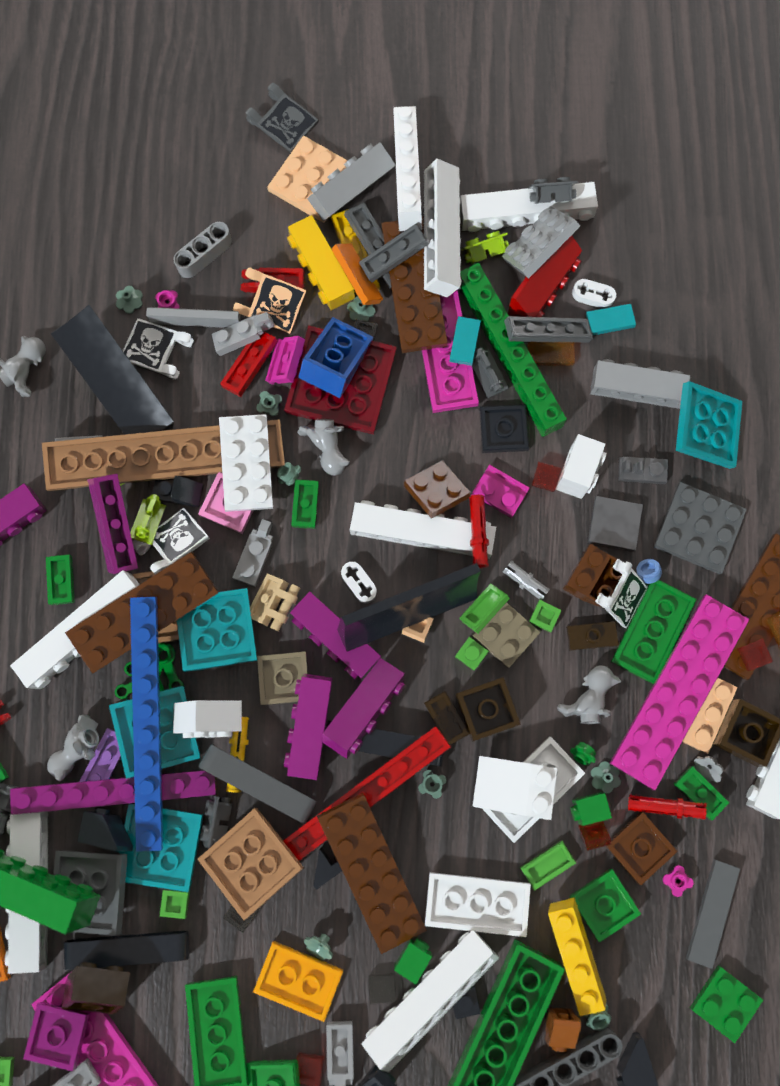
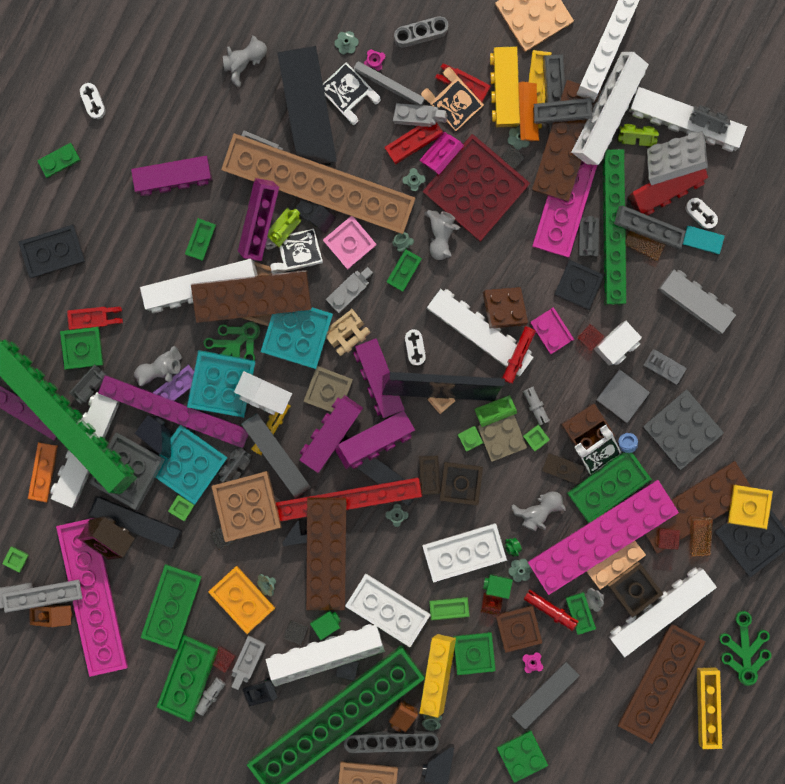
camera: 25 degrees right, 10 degrees up
(56, 1036) = (66, 555): magenta plate -> none
(146, 724) = (219, 375): blue plate -> none
(245, 463) = (375, 219): white plate -> none
(335, 357) = (480, 170): blue slope -> none
(351, 181) = (560, 33): light grey brick -> none
(464, 341) = (583, 204): teal tile -> none
(515, 787) = (452, 545): white slope -> none
(709, 425) = (729, 359): teal plate -> none

